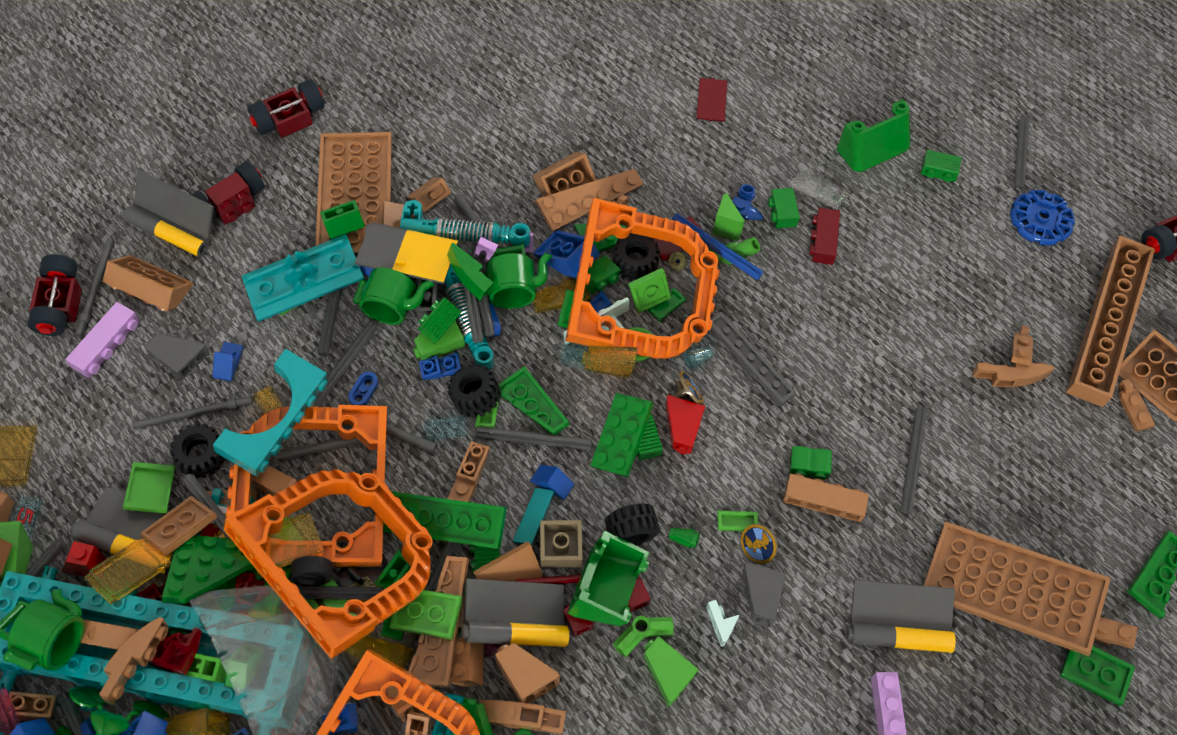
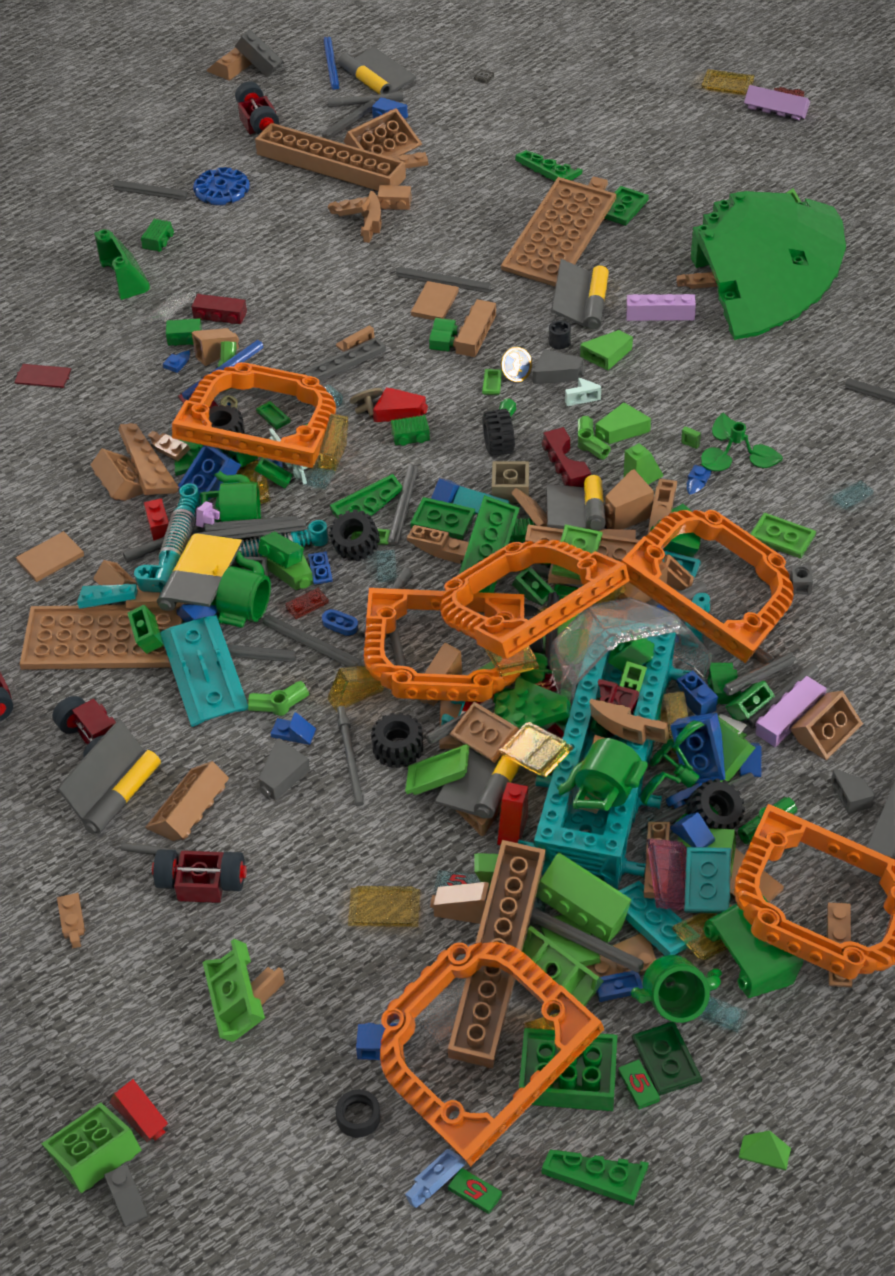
camera: 80 degrees left, 15 degrees down
(37, 213) = (71, 918): none -> medium nougat hinge
(102, 340) = (256, 833): lavender brick -> none
(255, 450) = (347, 631): teal arch -> none
(260, 335) = (279, 700): none -> bright green piece
(393, 359) = (306, 603): none -> clear red plate
(399, 184) = (106, 594): none -> teal wing
(460, 139) = (50, 556): none -> medium nougat tile
(469, 272) = (234, 520): green slope -> none
(503, 213) = (156, 518): none -> red brick
(510, 478) = (443, 517): none -> green plate
(566, 579) = (541, 487): dark red bar -> none
(585, 691) = (643, 462): none -> bright green slope
(608, 581) = (550, 450): green windscreen -> none
(622, 434) = (409, 439): green plate -> none
(649, 290) = (266, 411): bright green tile -> none
(728, 220) = (192, 362): bright green slope -> none
(747, 192) = (160, 355): blue plate -> none
(771, 243) = (208, 344): none -> medium nougat slope
(793, 373) = (356, 339): none -> medium nougat panel
(804, 653) = (607, 349): none -> bright green slope
(822, 593) = (559, 334): none -> black piece
(873, 452) = (434, 301): none -> medium nougat tile
(1054, 395) = (395, 197): none -> medium nougat brick

